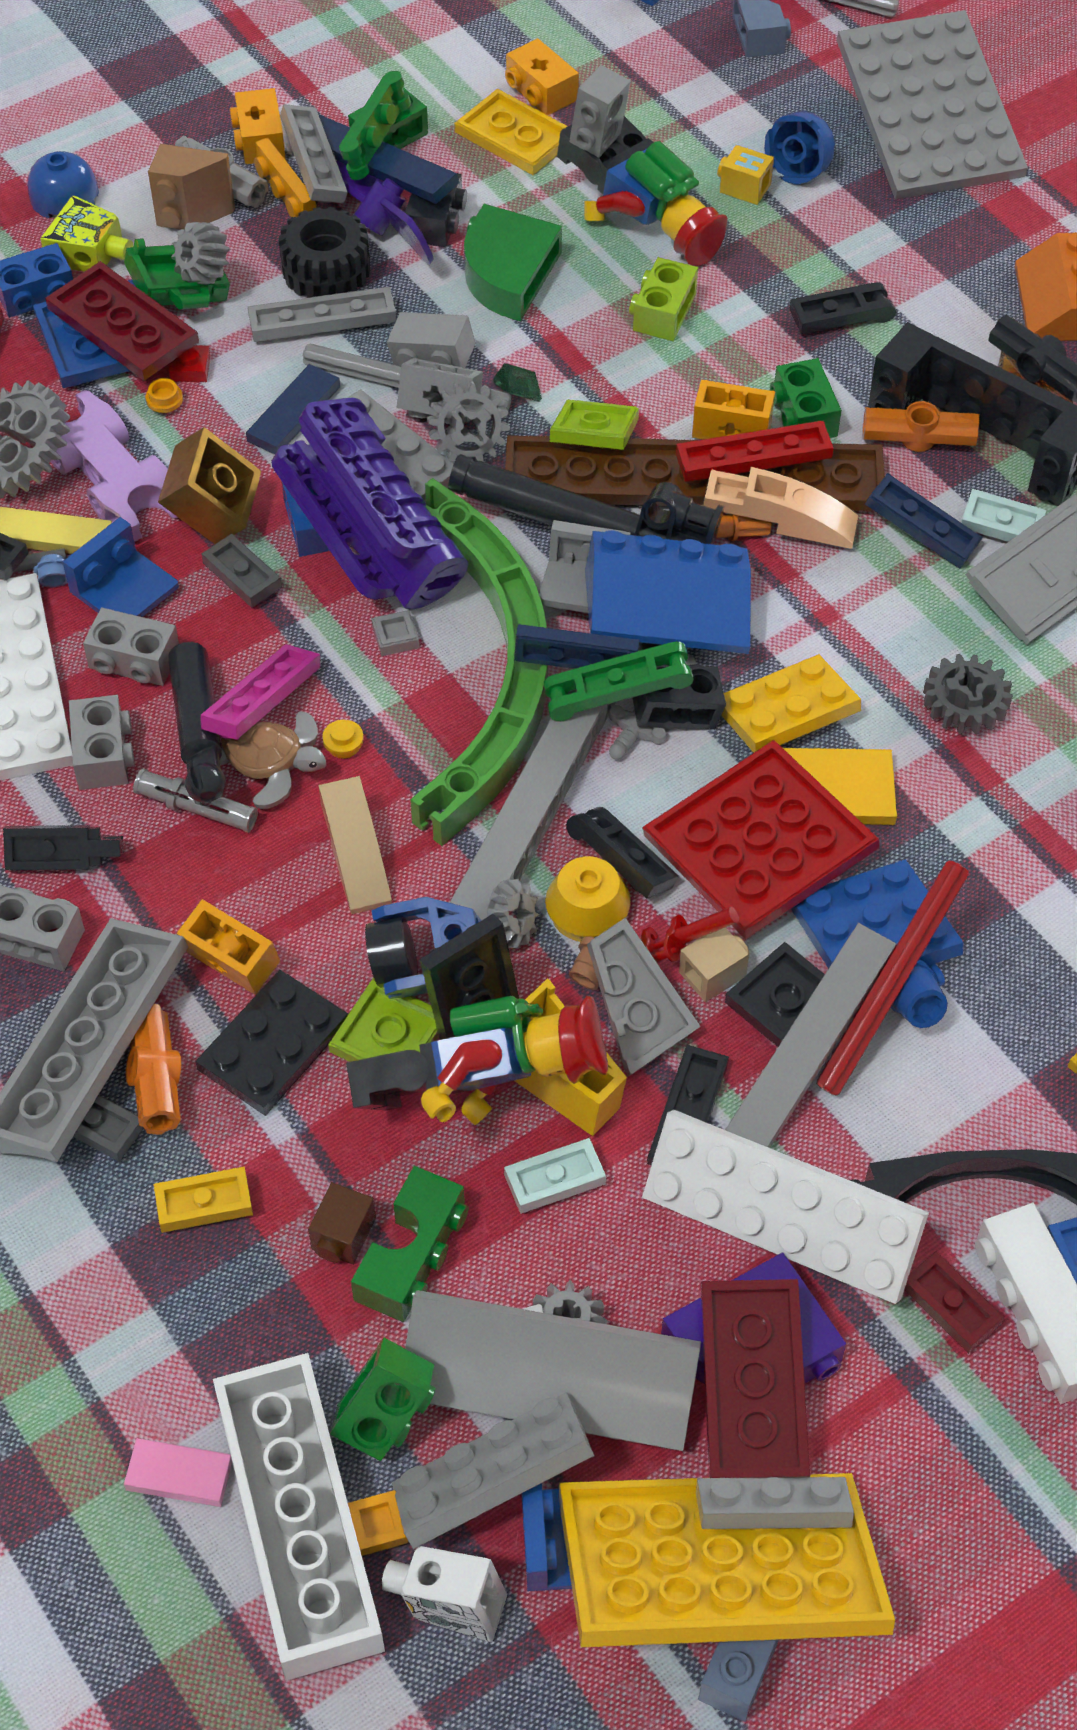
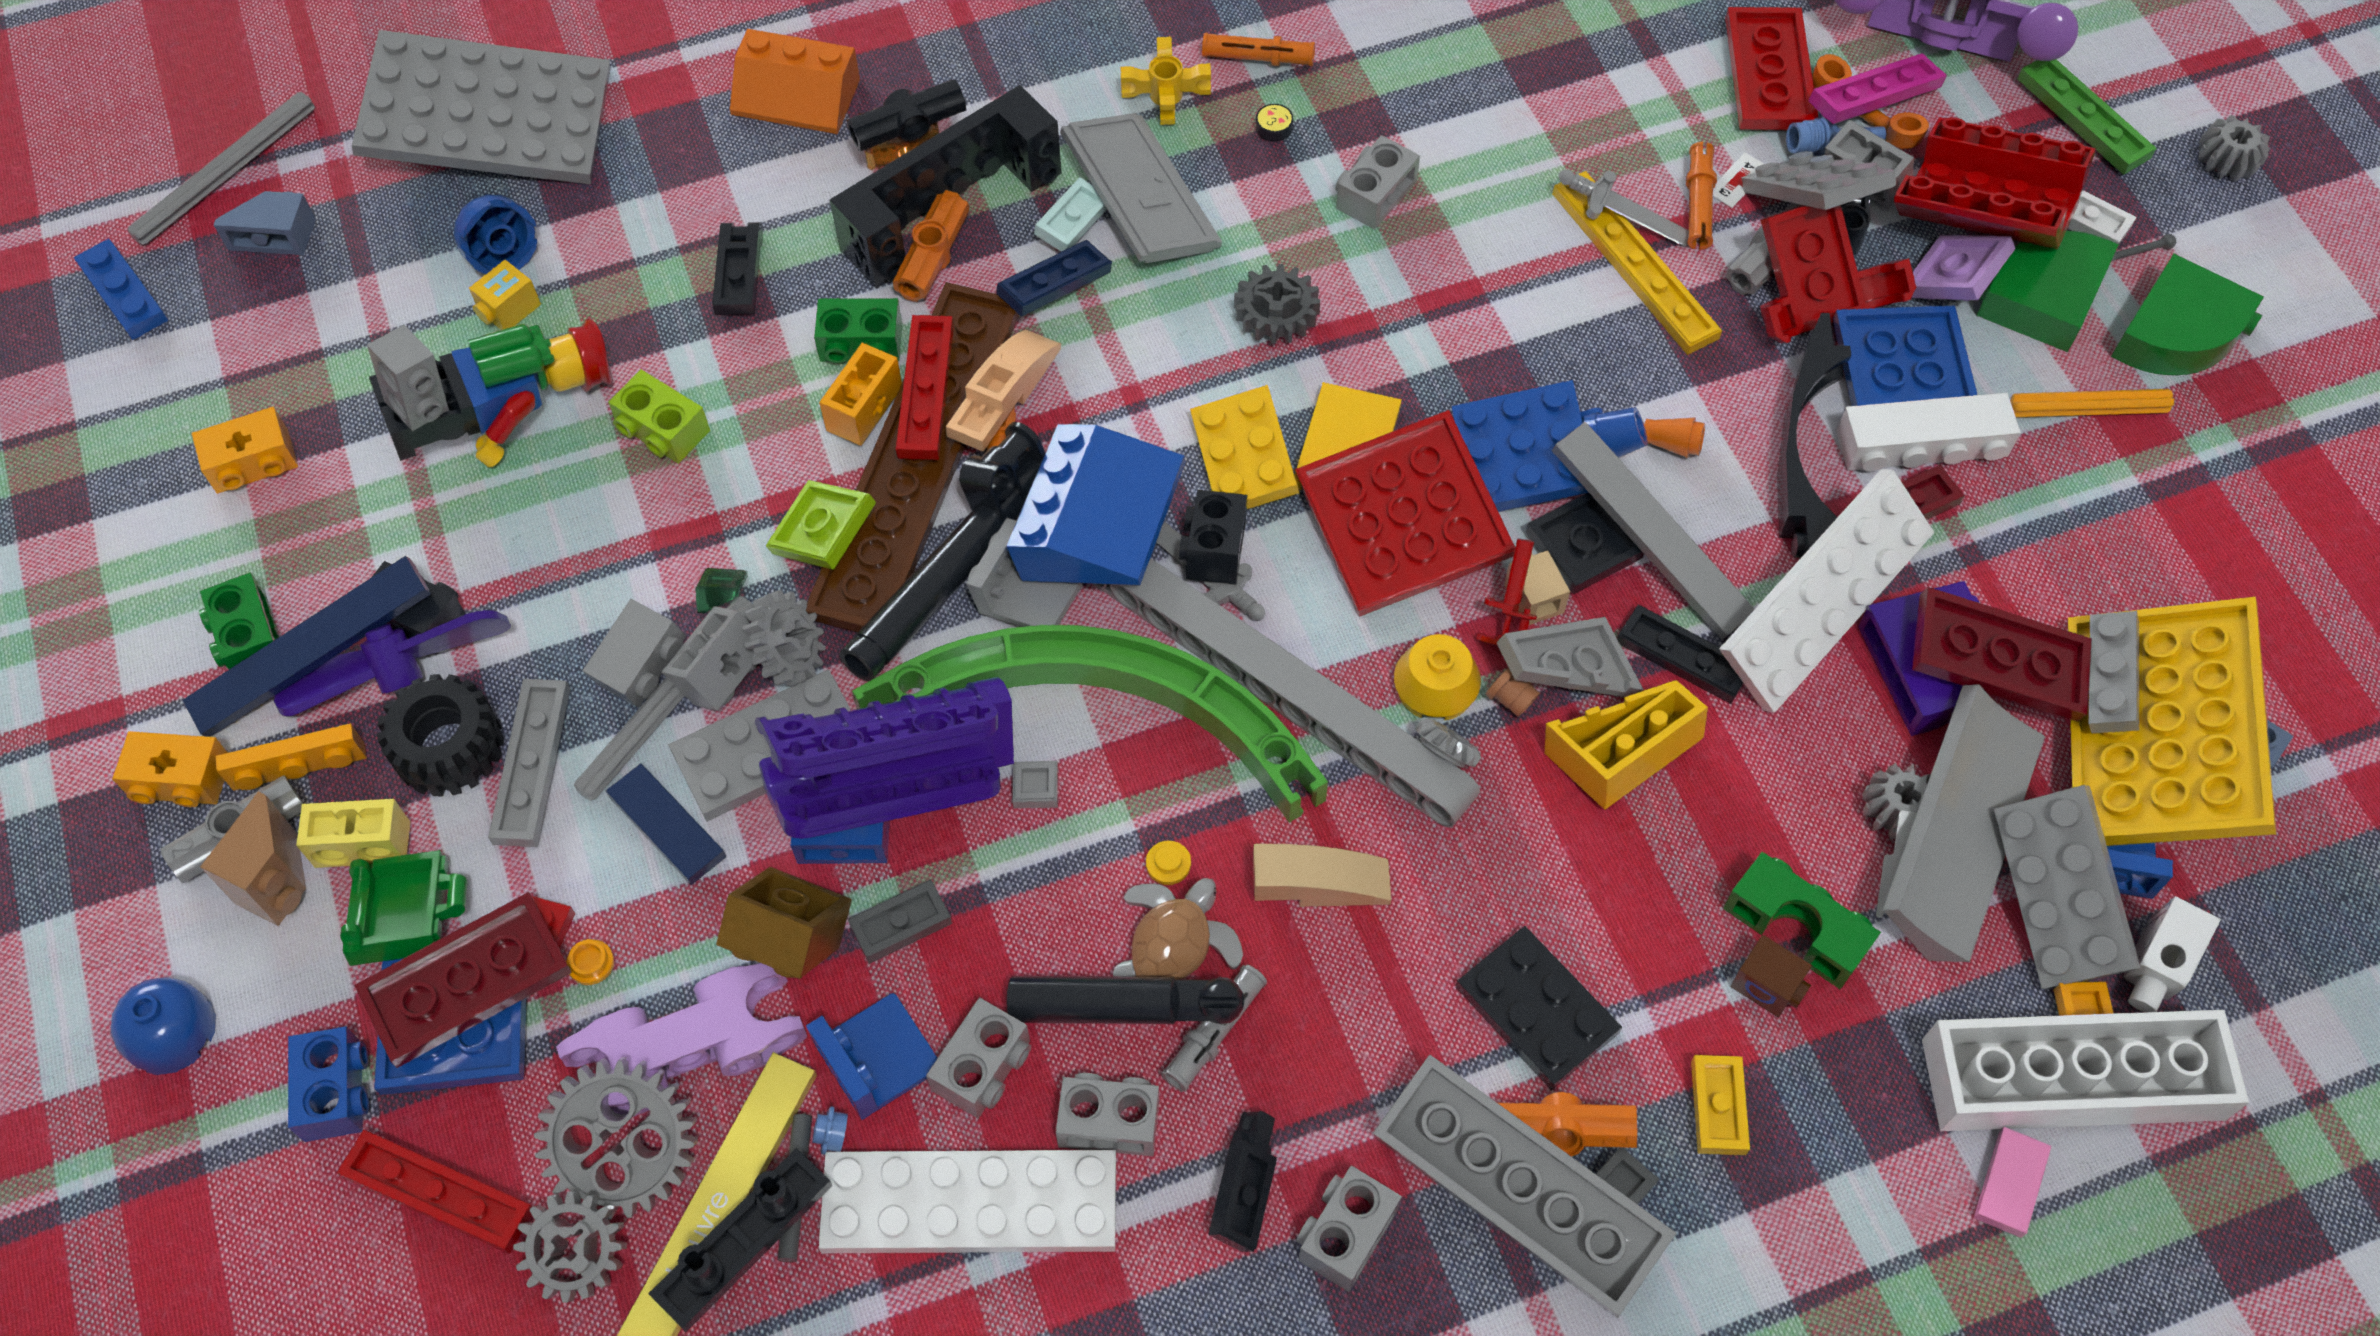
camera: 75 degrees left, 5 degrees up
(86, 235) = (276, 1004): neon yellow torso -> none
(200, 253) = (385, 872): light grey gear -> none
(225, 211) = (352, 830): none -> light yellow brick
(229, 946) = (1432, 1019): light orange brick -> none
(260, 692) = (1105, 923): dark pink plate -> none
(313, 154) = (271, 709): light grey plate -> none
(373, 124) = (260, 616): green plate -> none
(379, 1397) = (1987, 964): green brick -> none
(383, 1026) = (1548, 894): lime tile -> none
(392, 946) = (1494, 794): piece -> none
(468, 971) = (1548, 784): black plate -> none
(491, 1046) = (1655, 794): piece -> none
(509, 258) = (529, 552): green brick -> none
(512, 131) = (313, 502): yellow tile -> none
(554, 1175) = (1743, 778): light aqua plate -> none
(568, 648) = (1154, 602): dark blue tile -> none
(617, 679) = (1209, 572): green plate -> none
(623, 851) = (1387, 633): black plate -> none
(892, 978) = (1591, 412): red axle -> none
(947, 1062) = (1676, 435): none -> orange cone

